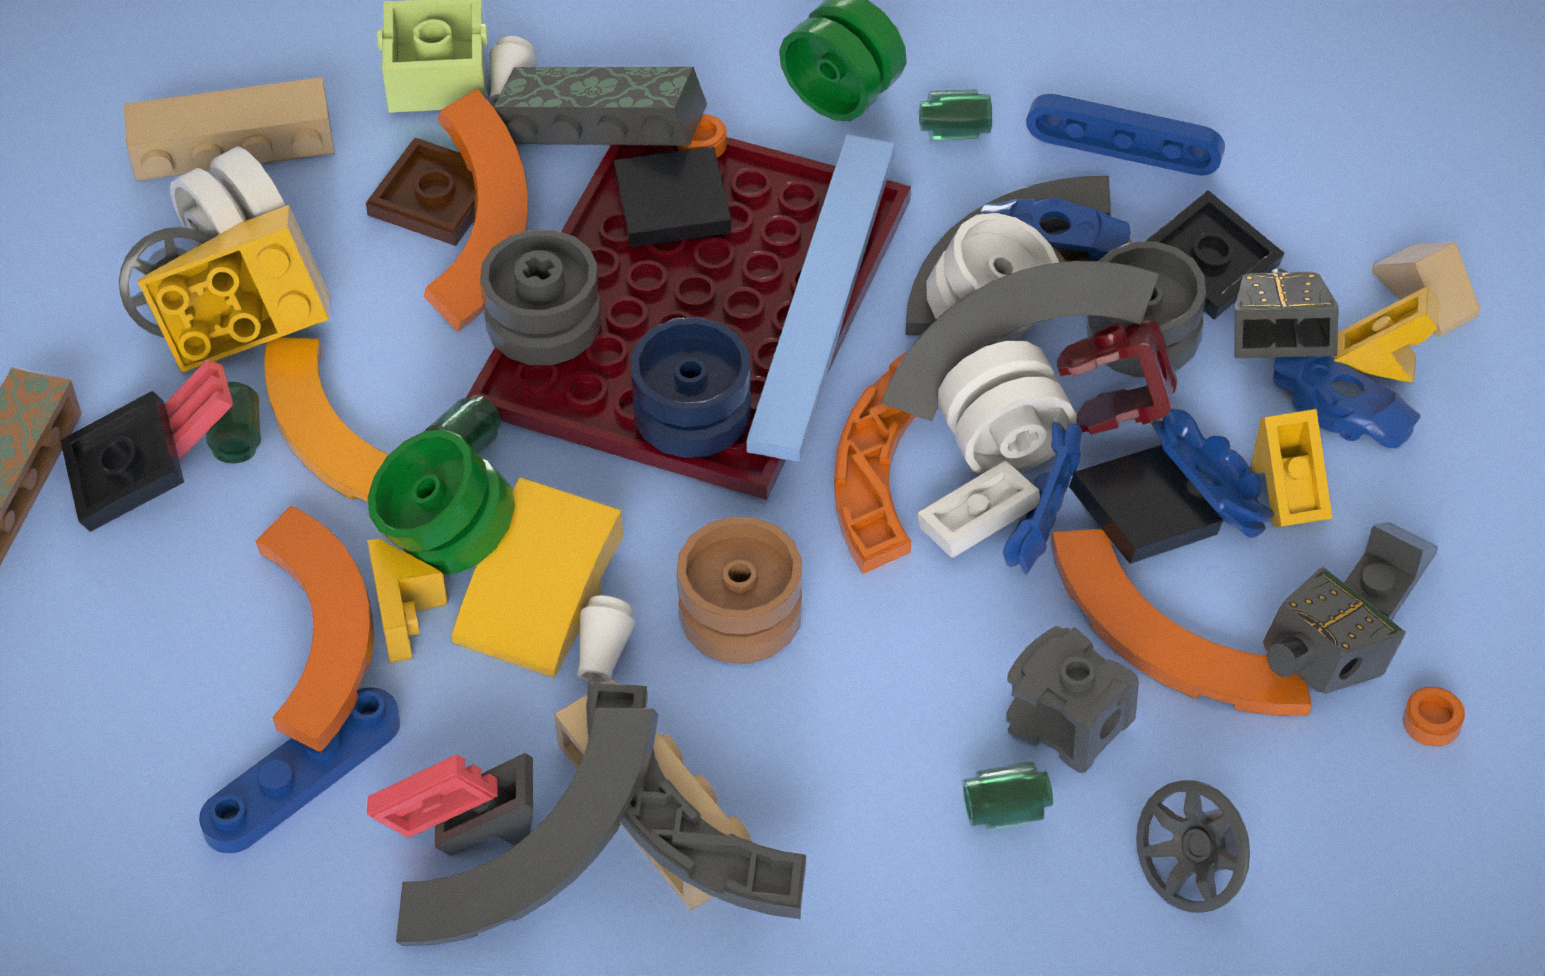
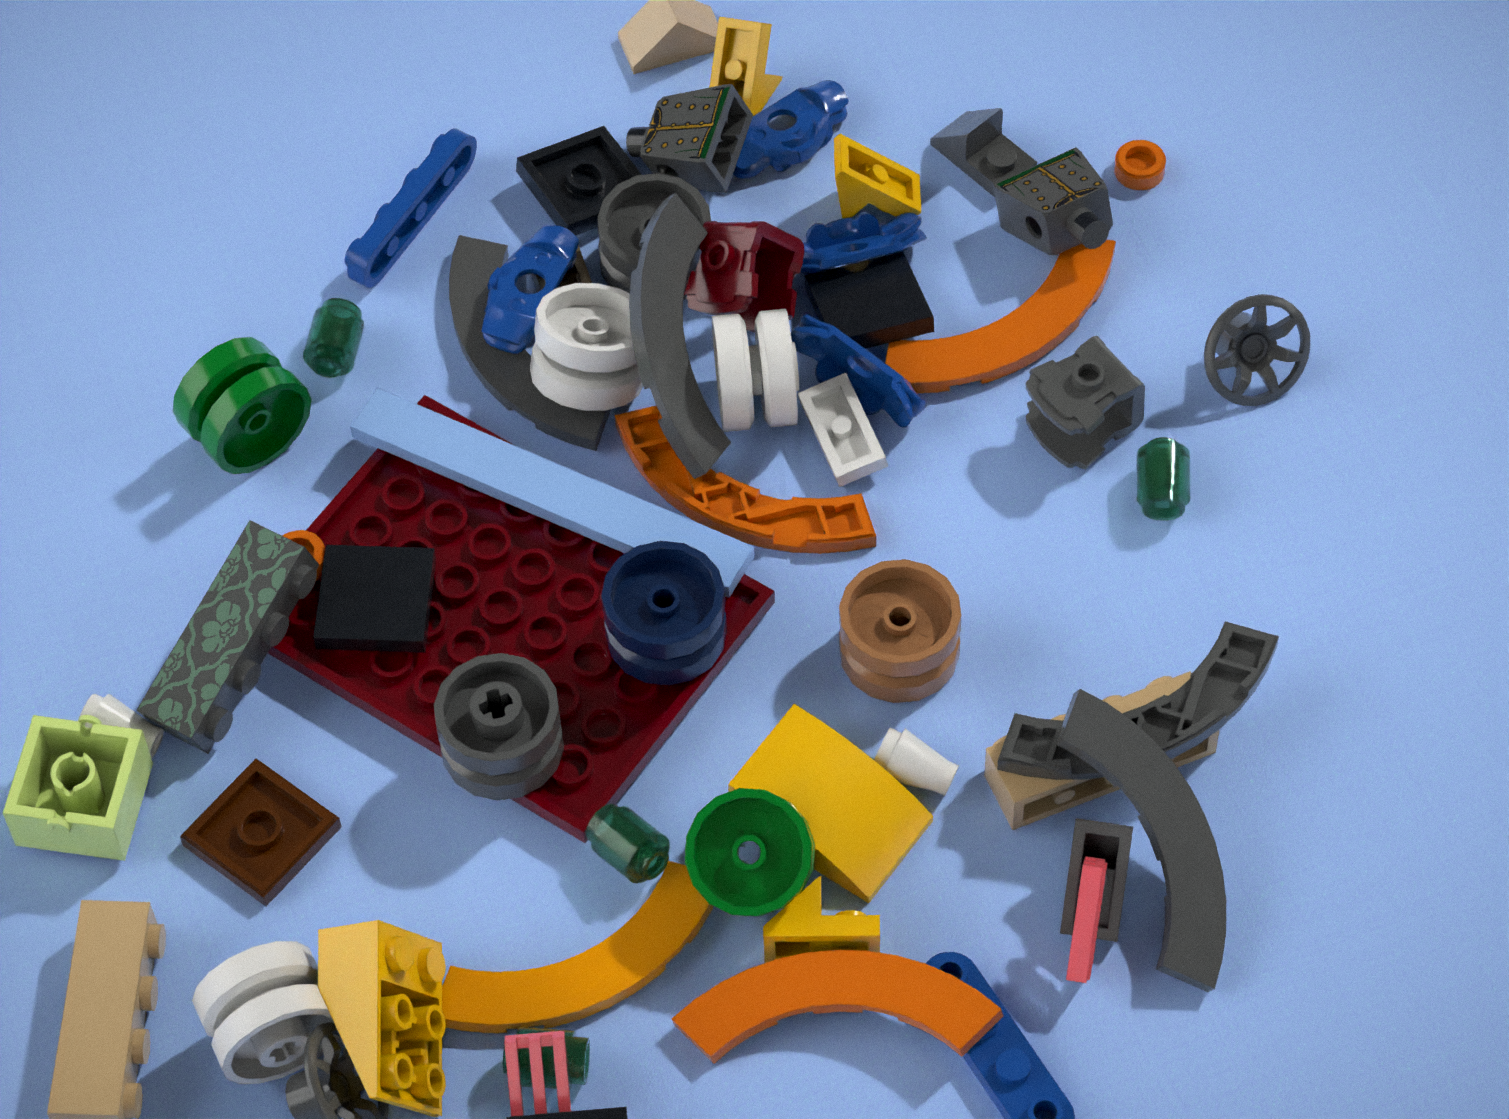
camera: 75 degrees left, 5 degrees up
(499, 203) = (323, 767): orange tile -> none

